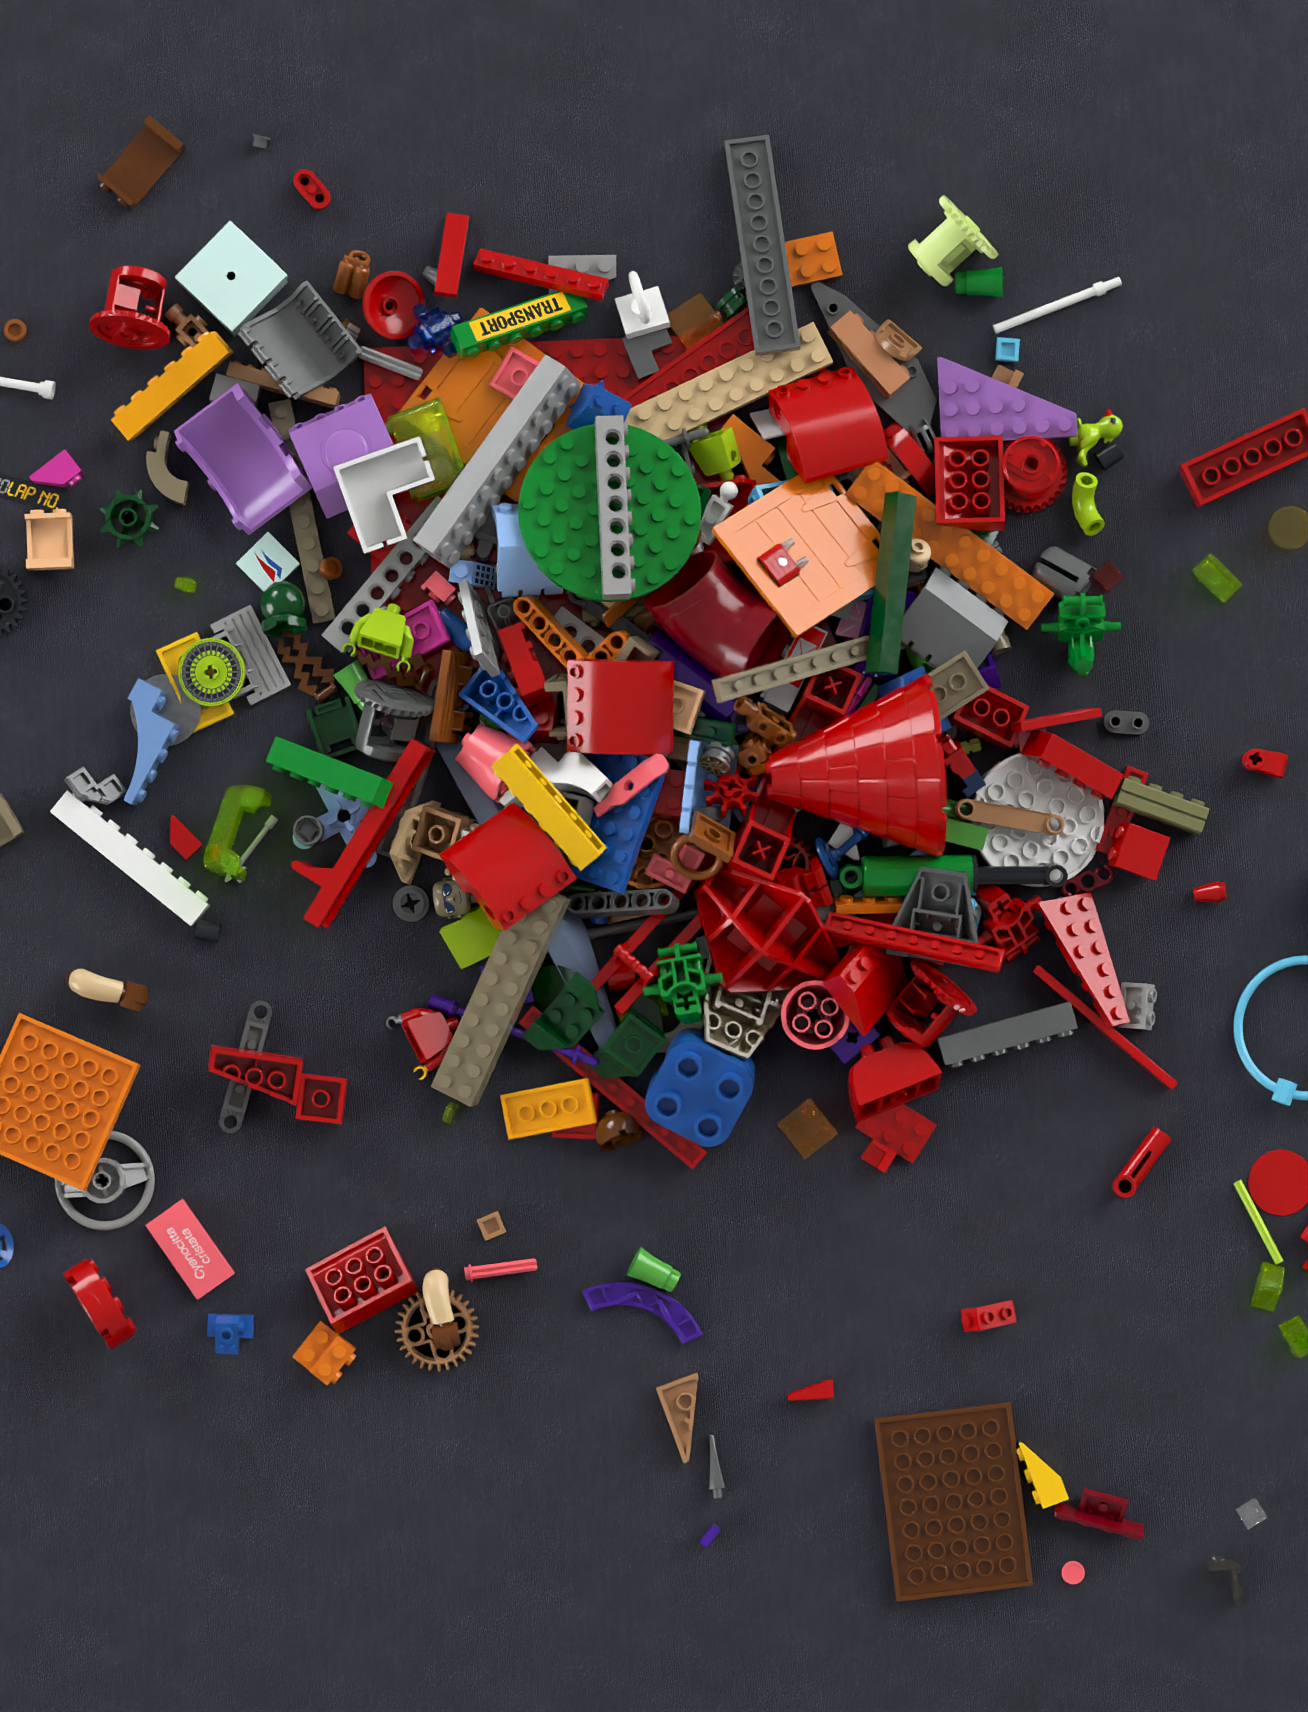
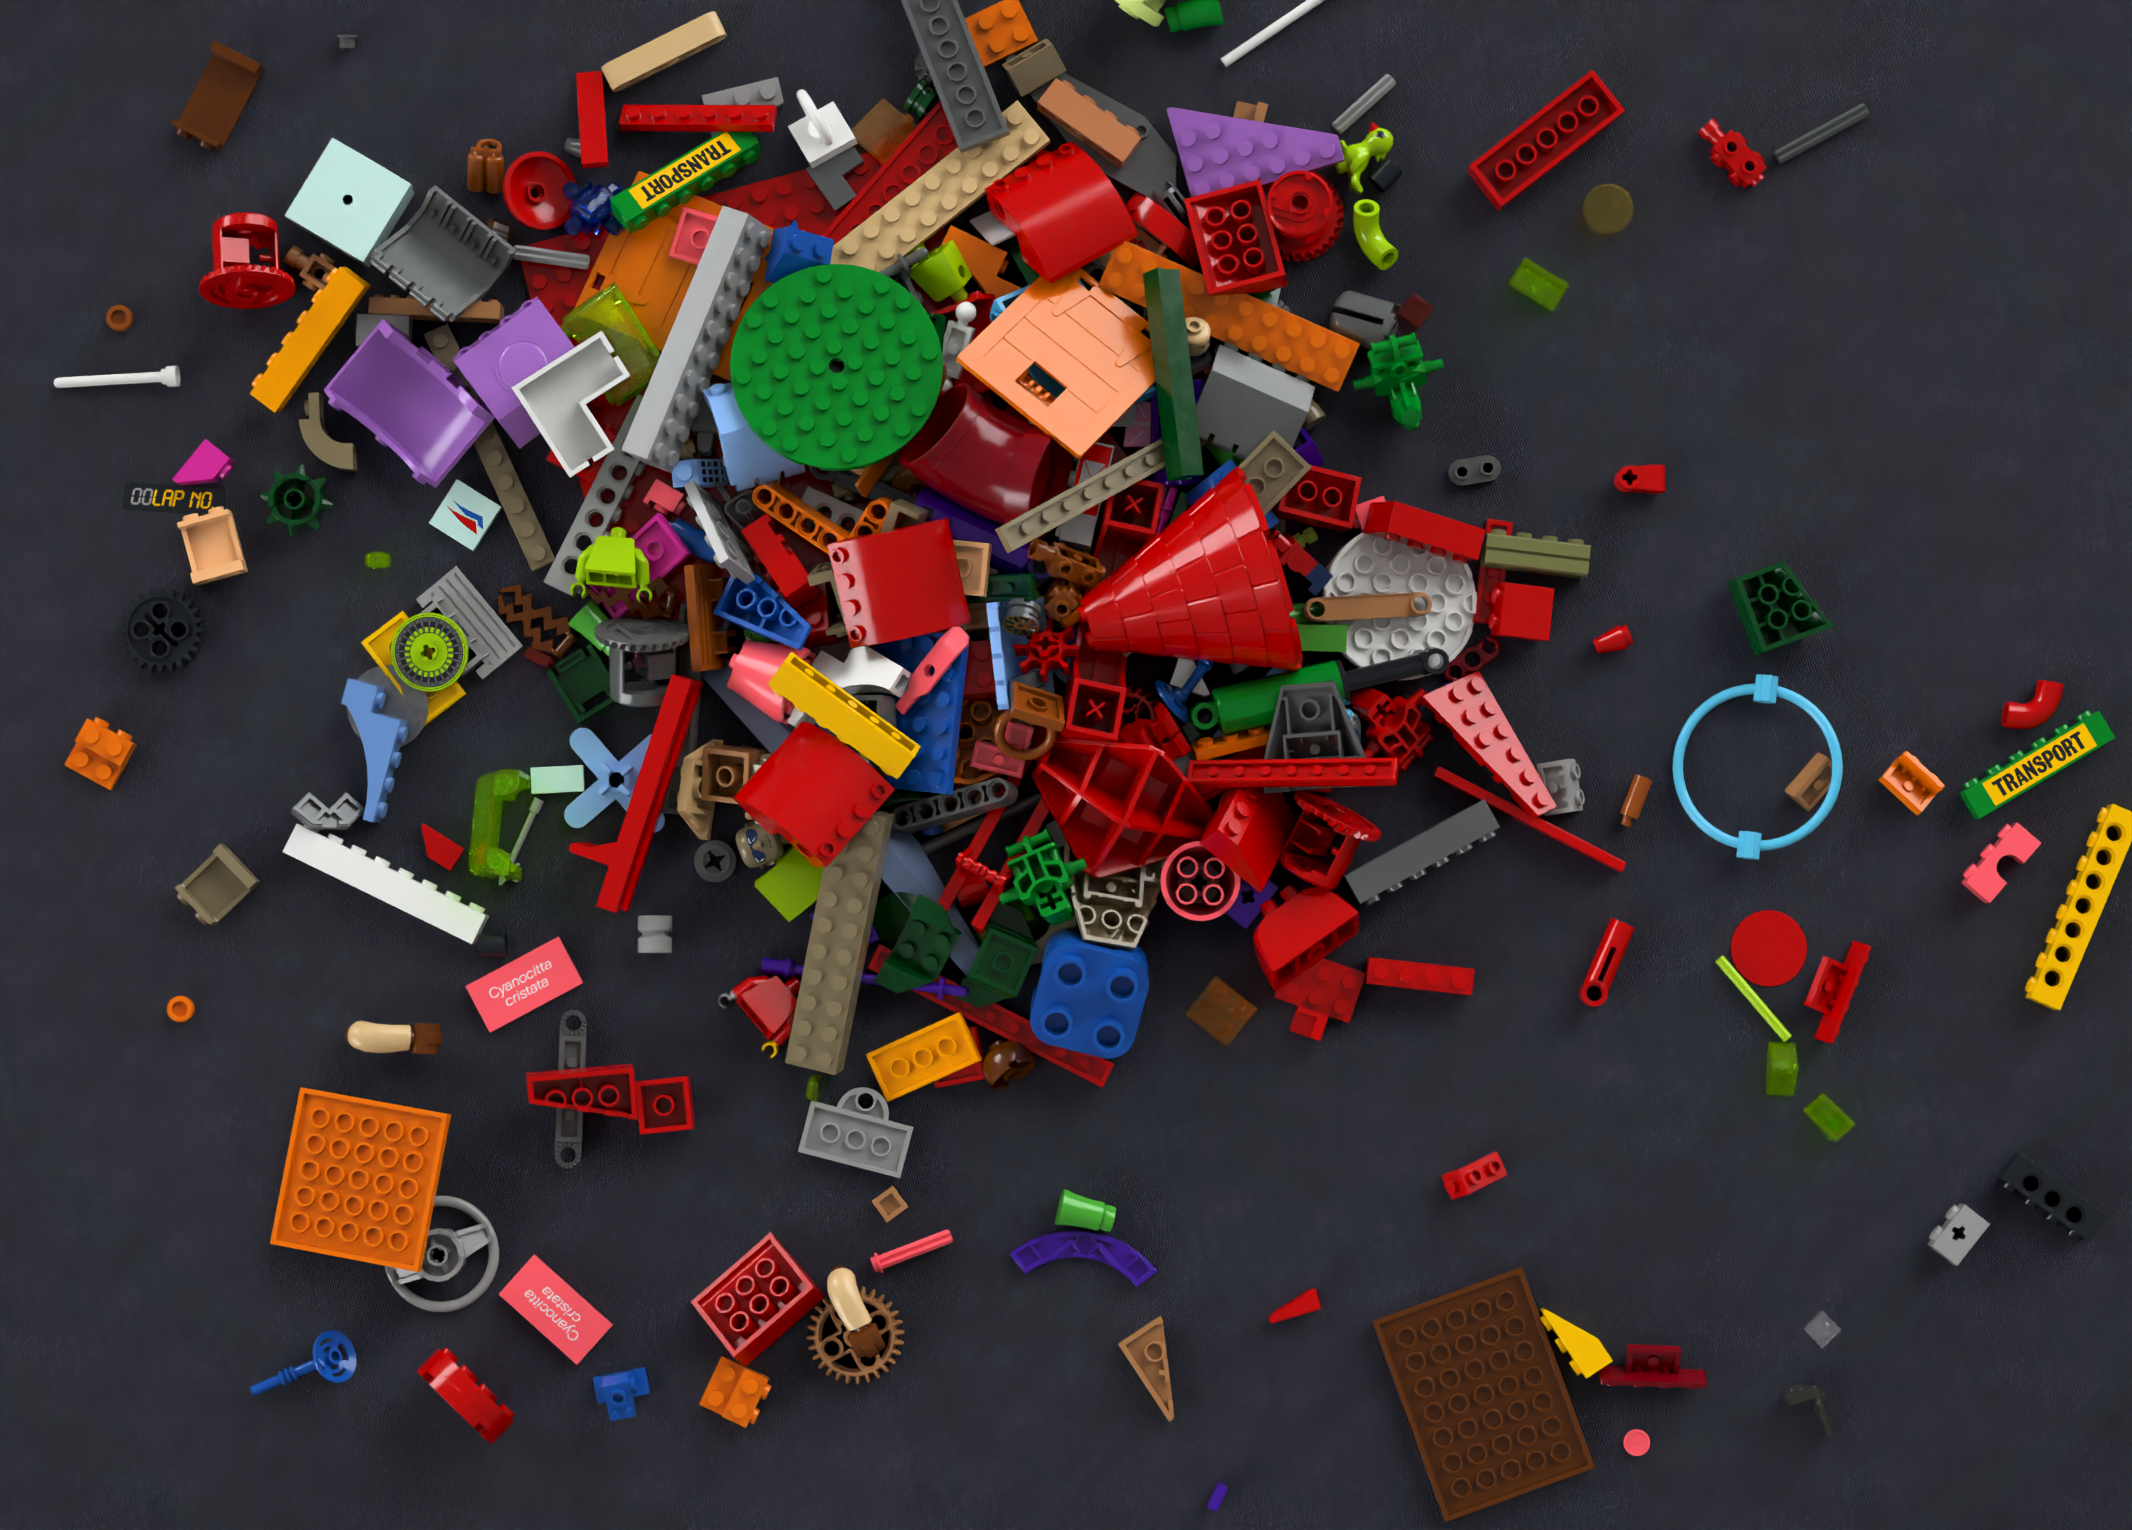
camera: 10 degrees left, 0 degrees up
(226, 970) = (524, 984): none -> coral tile
(283, 606) = (493, 560): dark green tile -> none
(293, 803) = (557, 779): none -> light aqua tile
(302, 698) = (538, 657): none -> clear red tile
(308, 830) = (580, 805): dark grey wheel -> none
(312, 190) = (418, 83): red plate -> none
(329, 772) = (588, 734): green brick -> none
(330, 568) = (537, 504): dark orange tile -> none
(346, 953) = (655, 934): none -> light grey wheel
(476, 1161) = (857, 1134): none -> light grey plate
(525, 211) = (664, 51): none -> tan beam
(612, 587) = (858, 450): light grey brick -> none
(716, 1480) = (1210, 1433): dark grey piece -> none
(780, 564) = (1042, 380): piece -> none
(833, 296) = (1034, 67): none -> dark tan panel
(897, 341) = (1117, 101): medium nougat tile -> none
(981, 1137) = (1419, 976): none -> red brick
(1007, 350) = (1243, 82): medium azure tile -> none
(1056, 719) = (1394, 485): red tile -> none
(1104, 391) = (1363, 104): none -> light grey axle
(1197, 1031) = (1635, 799): none -> dark orange cylinder

